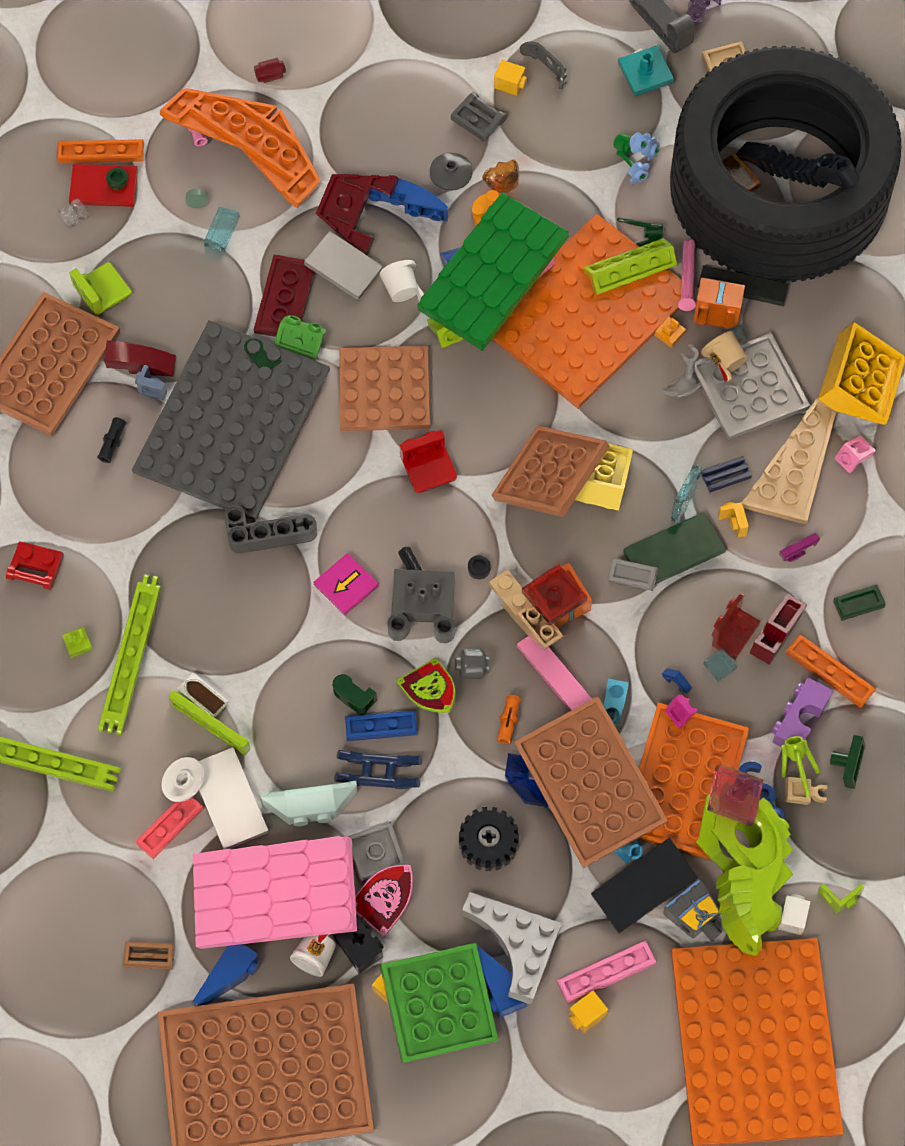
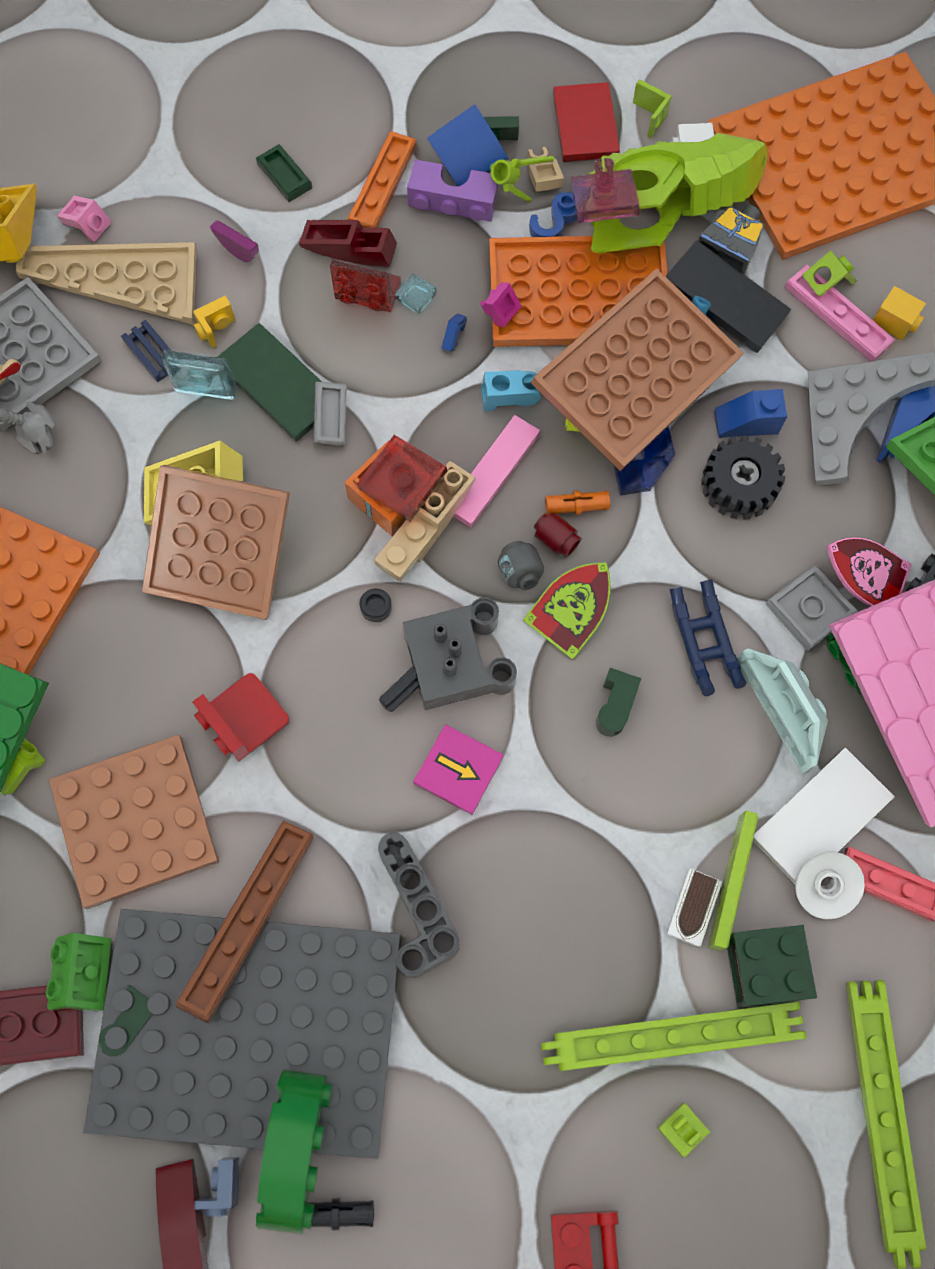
camera: 110 degrees left, 5 degrees up
(148, 723) = (771, 966): none -> dark green piece
(156, 415) = (288, 1152): none -> green brick
(295, 431) = (244, 922): none -> dark orange tile
(381, 725) = (643, 656): blue tile -> none
(488, 696) = (557, 534): none -> dark red brick
(536, 866) = (752, 414): none -> blue slope
(640, 977) = (839, 269): none -> lime bracket
(835, 735) = (466, 145): none -> blue slope
(845, 842) = (585, 121): none -> red tile

